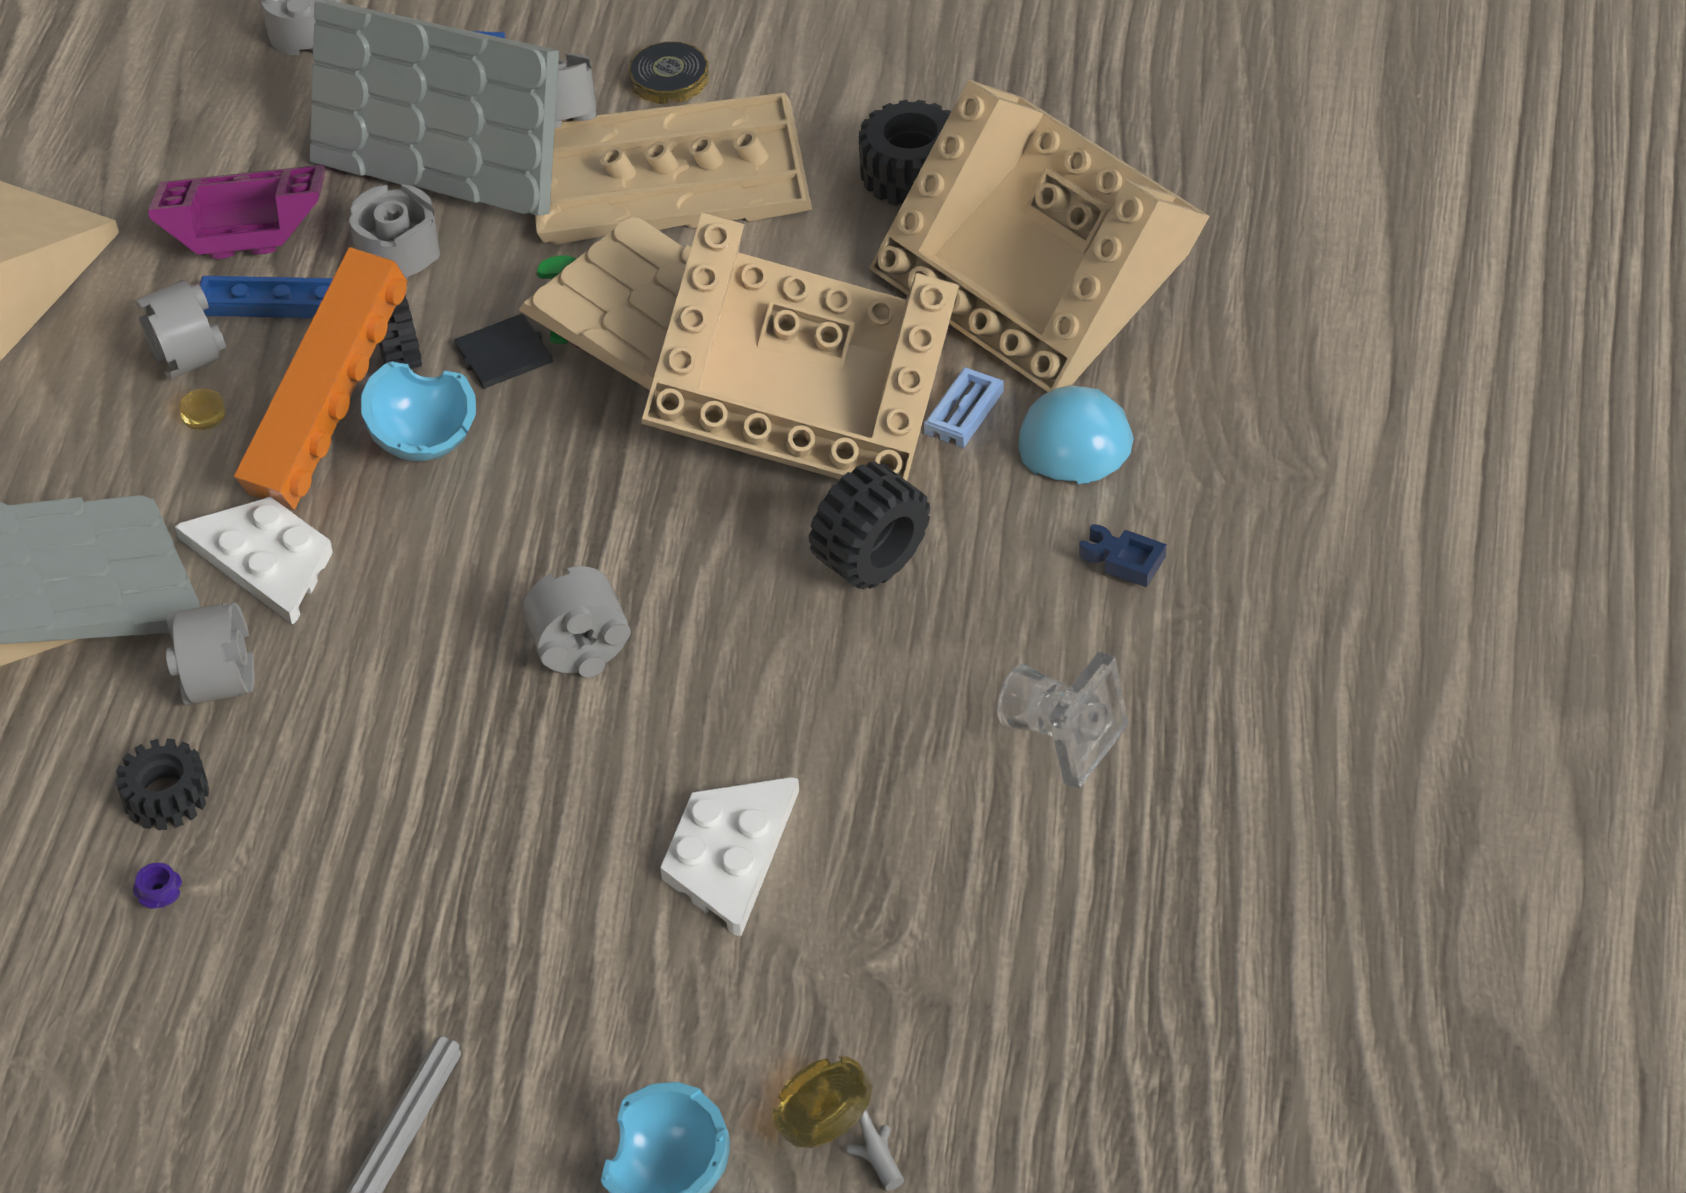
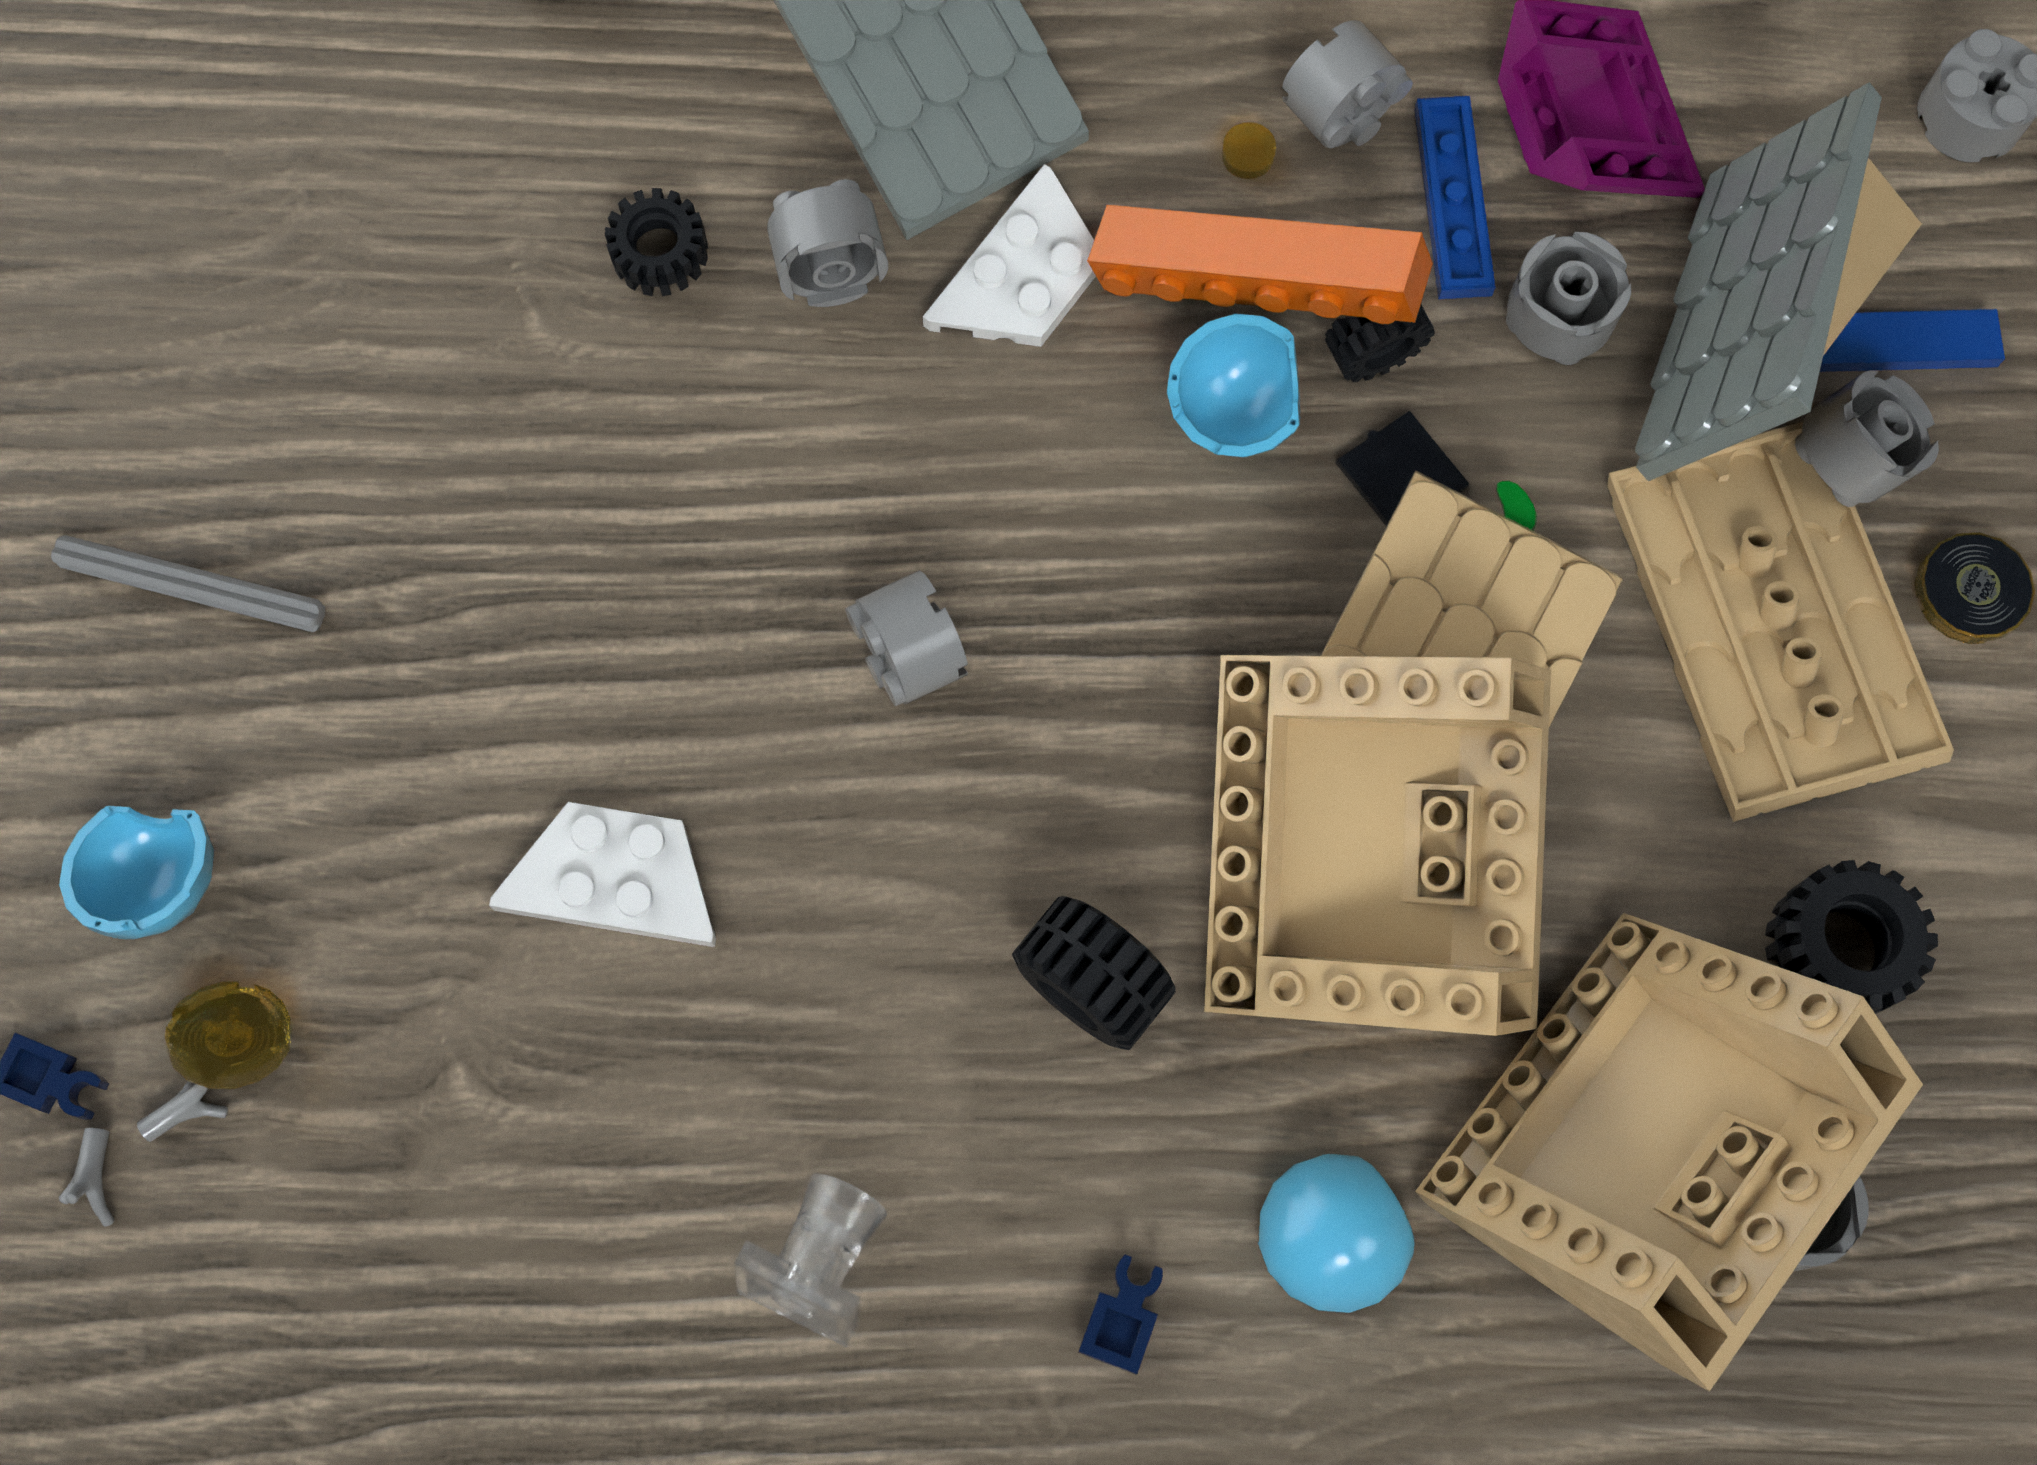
camera: 80 degrees right, 25 degrees up
(154, 877) = (512, 260): dark purple plate -> none
(951, 429) = (1330, 1056): light blue tile -> none

